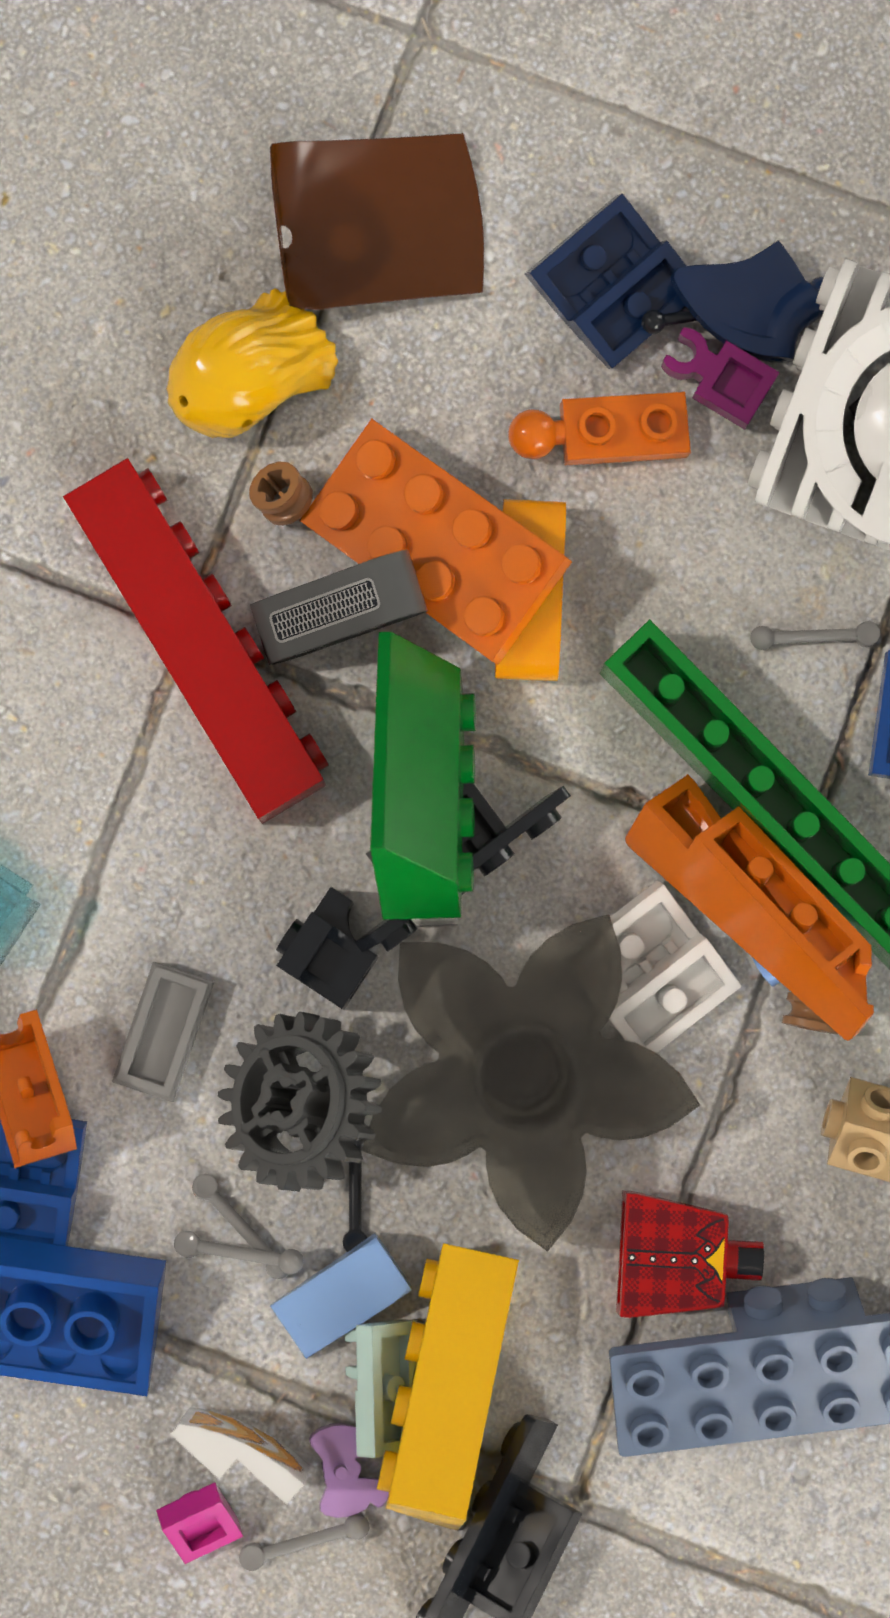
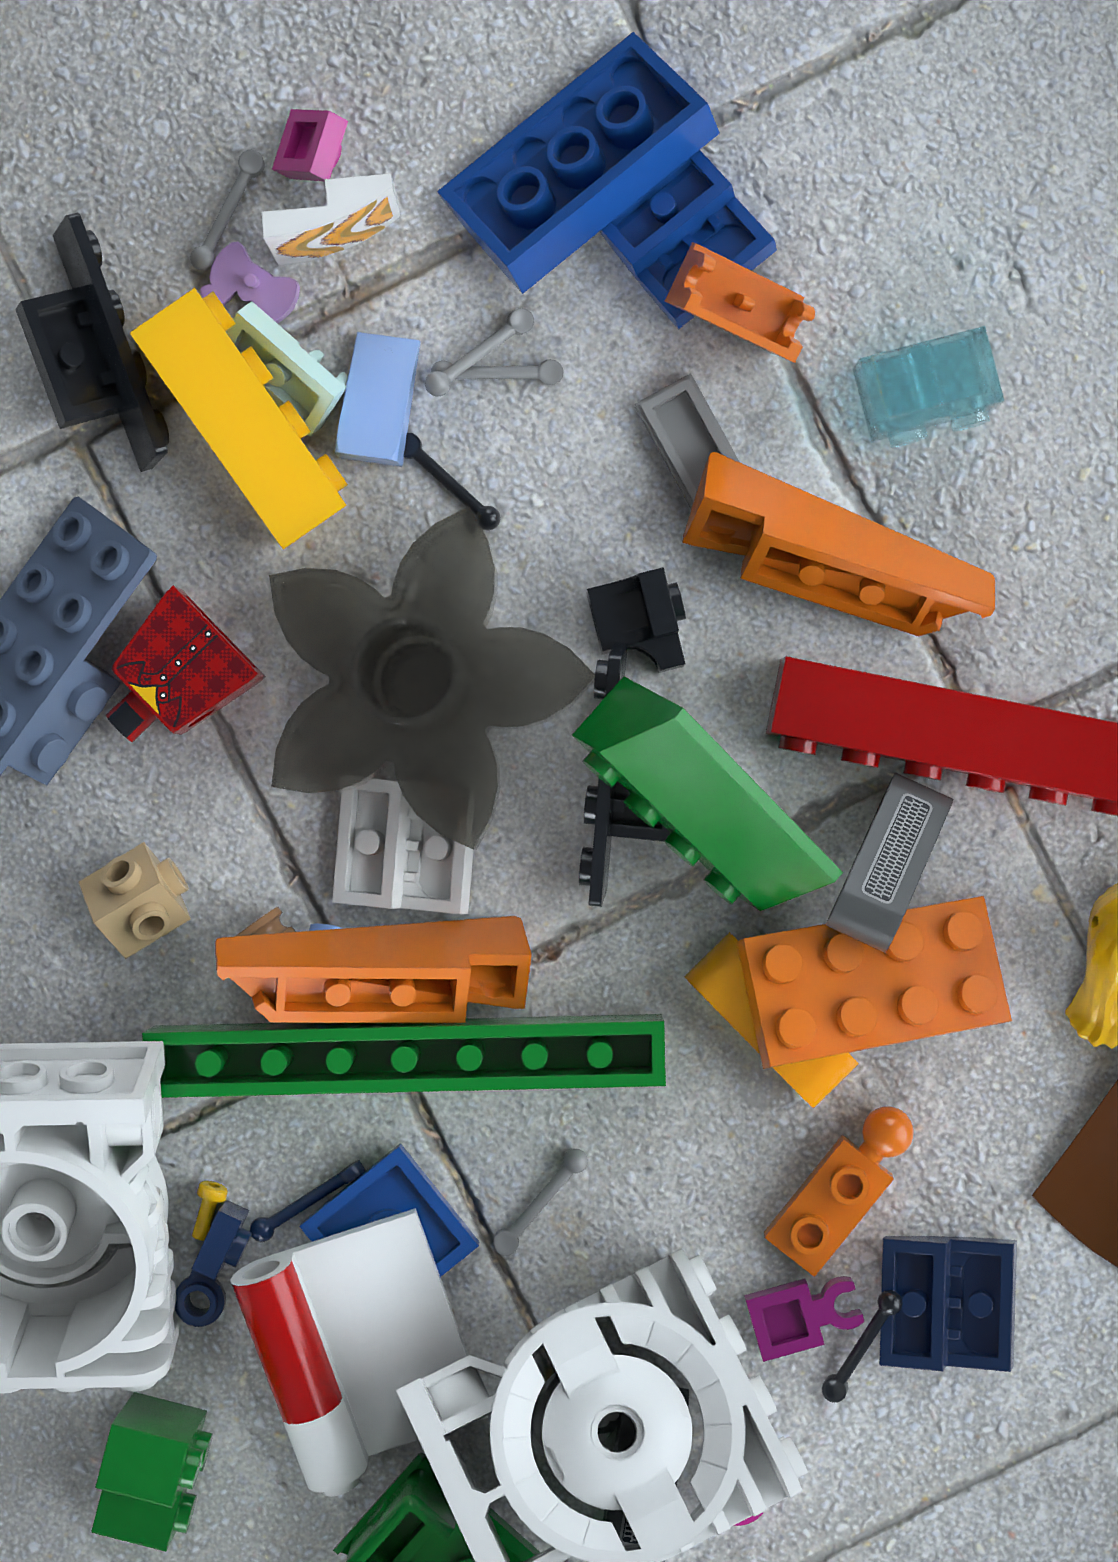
camera: 135 degrees right, 5 degrees up
(151, 857) = (830, 553): none -> orange wedge
(291, 504) = (1033, 900): medium nougat bush -> none
(318, 1107) = (562, 488): dark grey gear -> none
(752, 302) = (834, 1392): dark blue arm -> none

